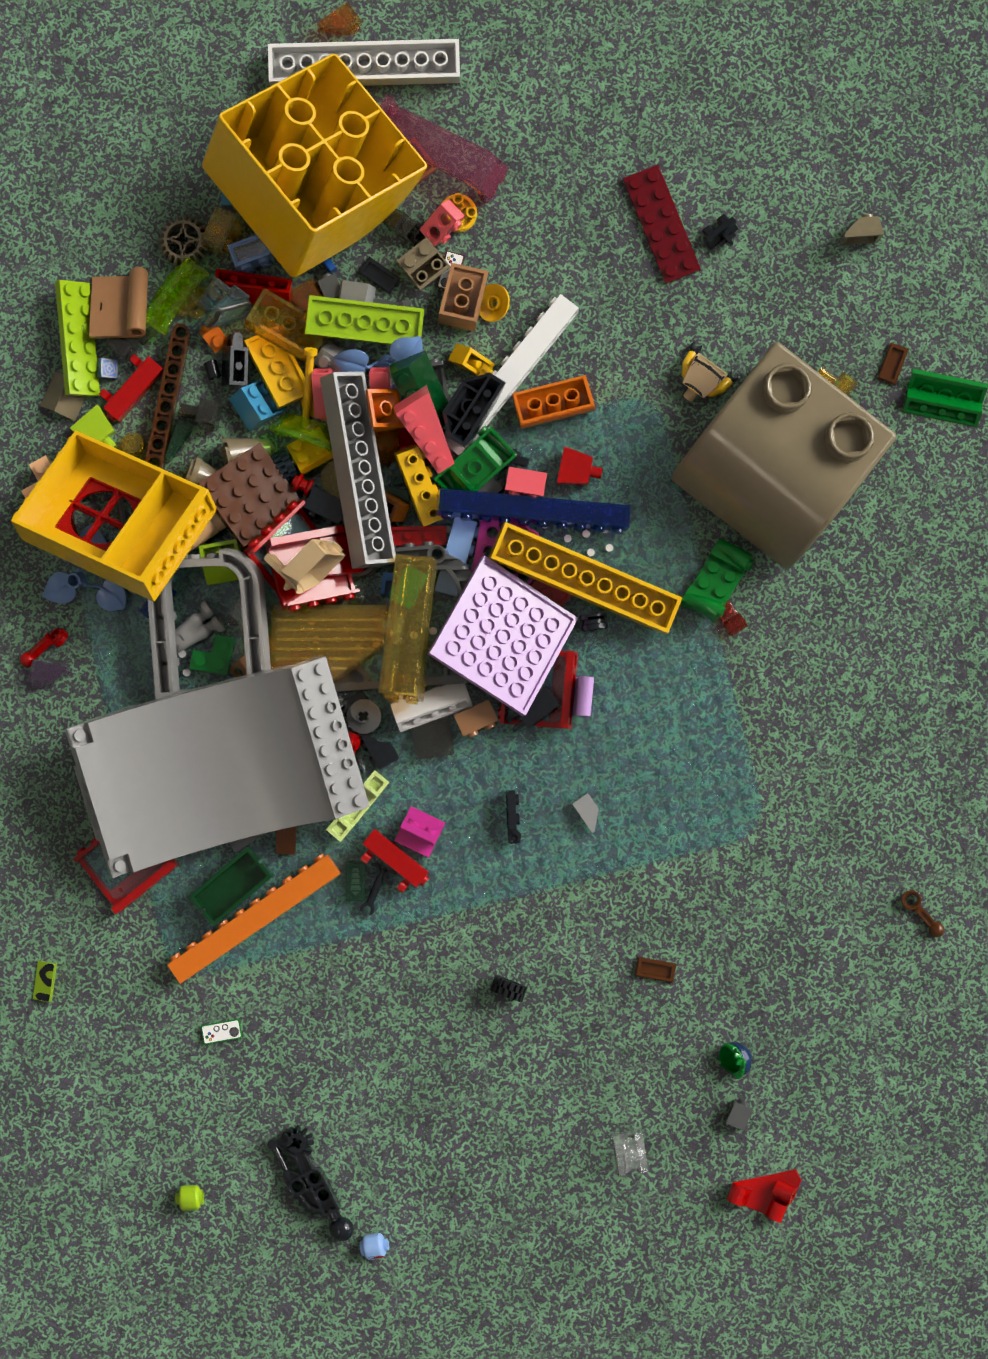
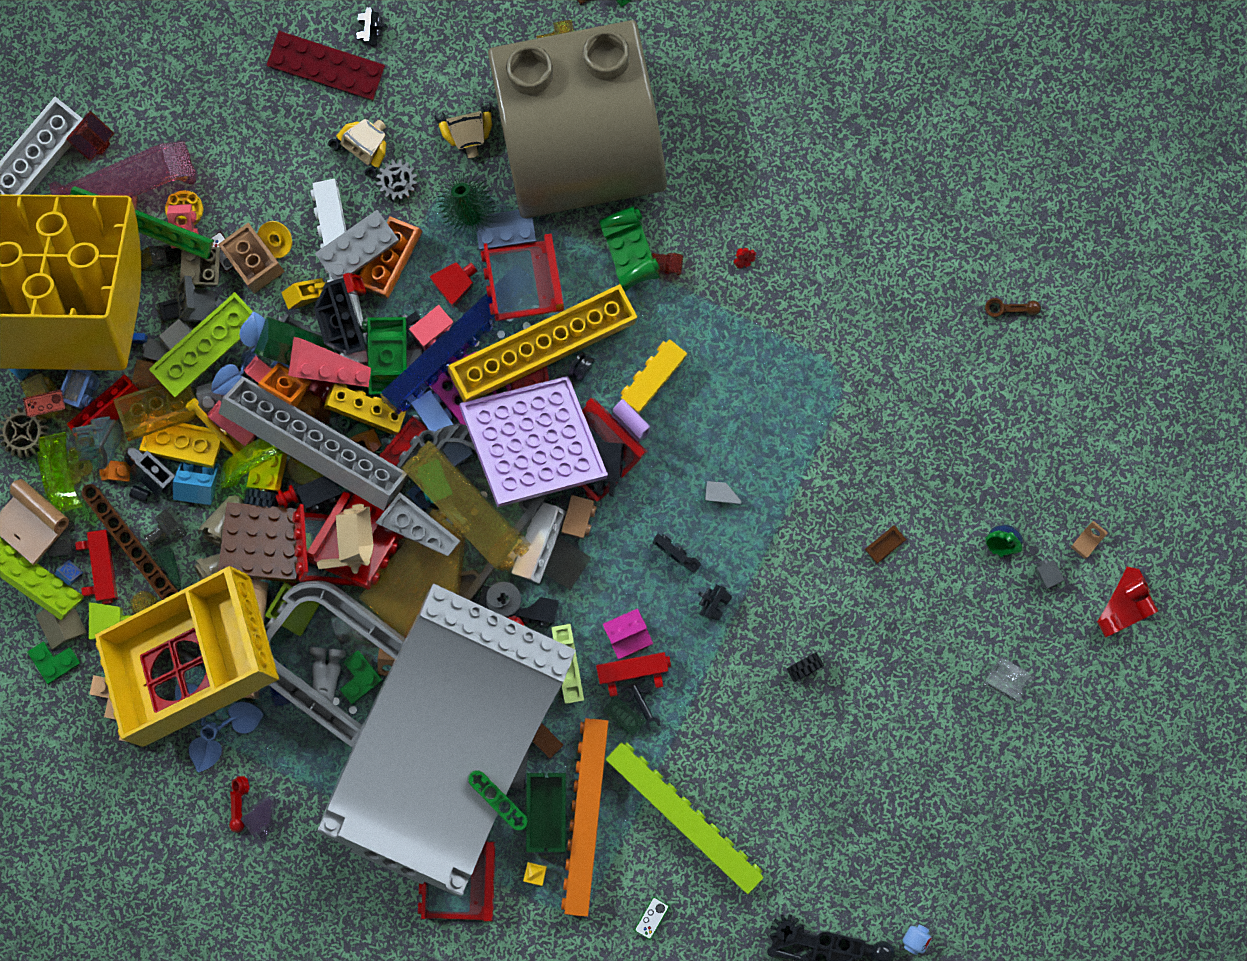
camera: 45 degrees left, 5 degrees down
(26, 415) = (50, 666): none -> green plate
(179, 915) = (535, 873): none -> yellow tile
(207, 842) = (499, 798): none -> green beam
(215, 238) = (44, 403): none -> clear red tile
(316, 993) = (683, 817): none -> lime brick
(362, 604) = (412, 522): none -> light grey wing
(391, 285) = (194, 303): none -> dark grey bracket
(425, 211) = (166, 231): none -> green plate
(452, 93) = (90, 136): none -> piece
(497, 874) = (710, 601): none -> black hips
(508, 394) = (354, 284): none -> red tile
(539, 371) = (357, 246): none -> light grey plate
(622, 520) = (523, 279): none -> clear light blue panel
(627, 305) = (364, 141): none -> tan torso
(628, 354) = (392, 187): none -> light grey gear
(634, 683) = (654, 376): none -> yellow brick
(643, 426) = (466, 203): none -> dark green piece
(648, 472) = (507, 231): none -> sand blue slope
(786, 673) = (744, 257): none -> red plant
(790, 1123) = (1088, 541): none -> medium nougat bracket

